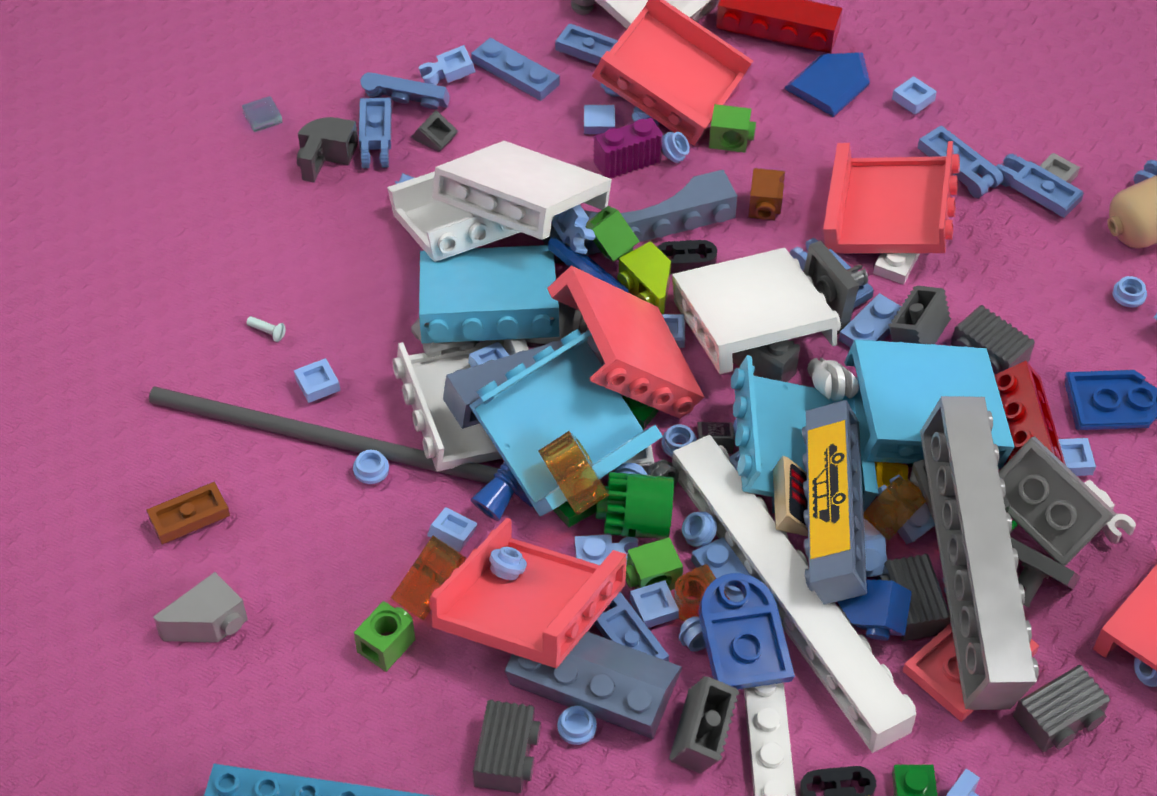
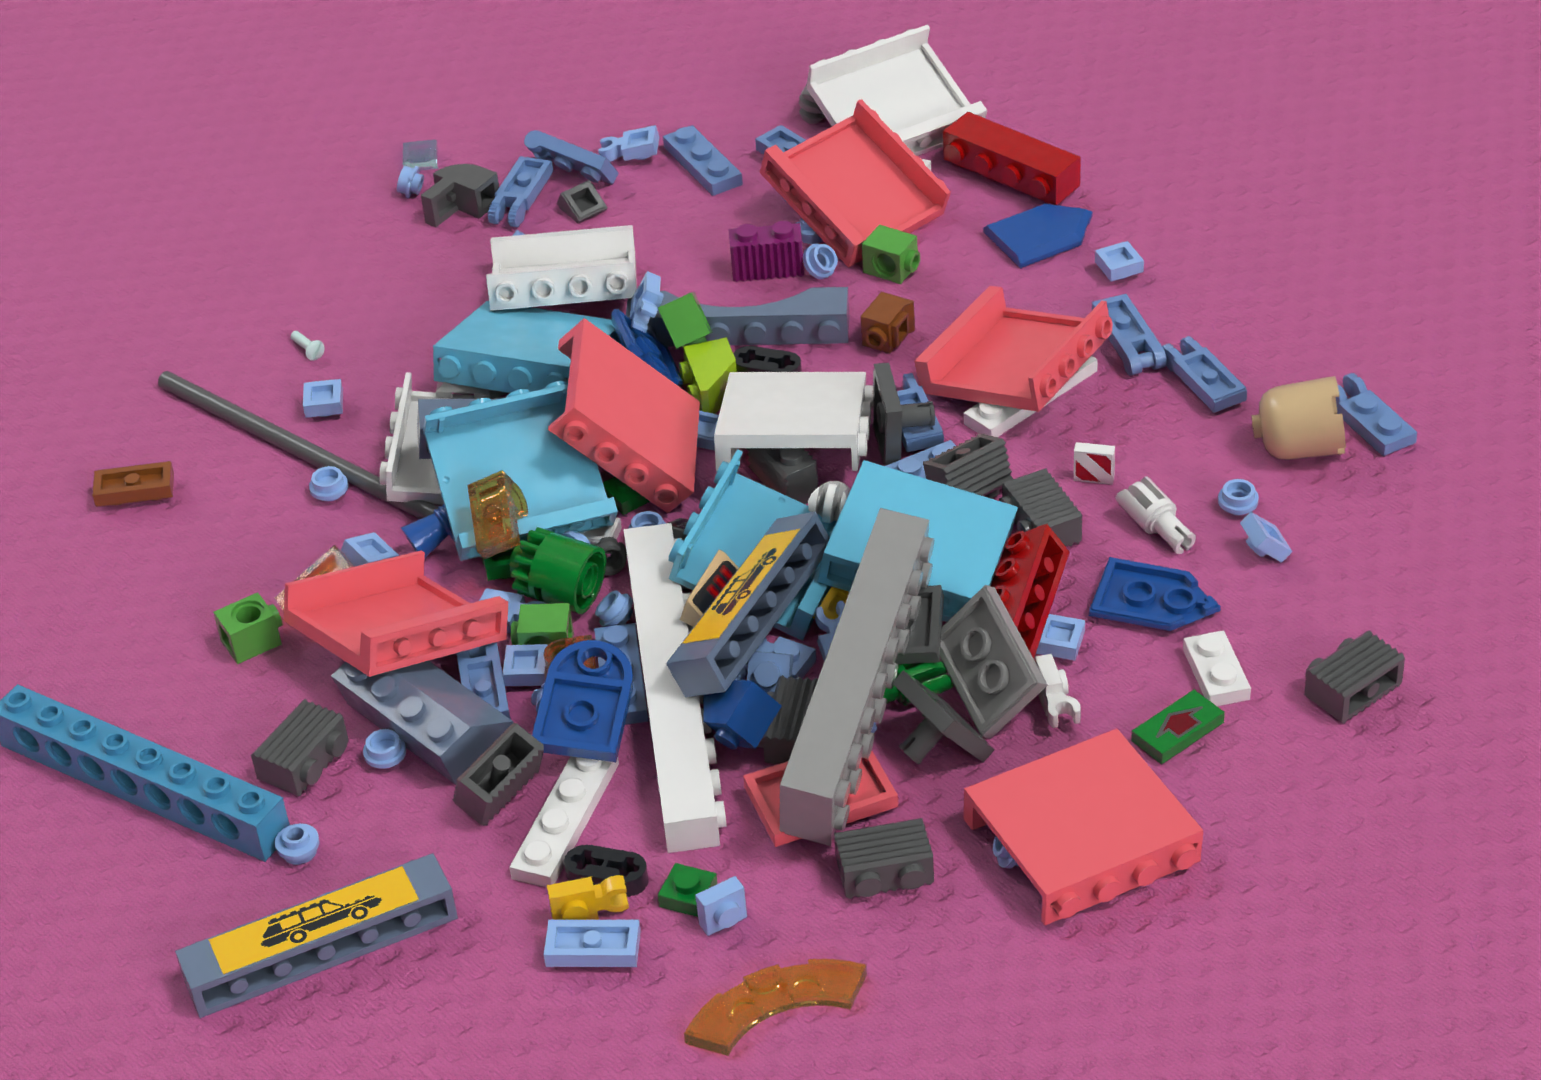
camera: 25 degrees right, 10 degrees down
(202, 613) = (91, 569): light grey slope -> none
(271, 142) = (410, 181): none -> light blue plate
(507, 563) = (393, 587): light blue plate -> none
(517, 187) = (593, 246): white panel -> none
(598, 118) = (760, 216): light blue tile -> none
(894, 507) = (814, 629): clear orange bracket -> none
(1006, 288) = (1094, 463): none -> white tile
(1061, 167) = (1242, 365): light grey tile -> none
(1079, 323) = (1155, 513): none -> white arm

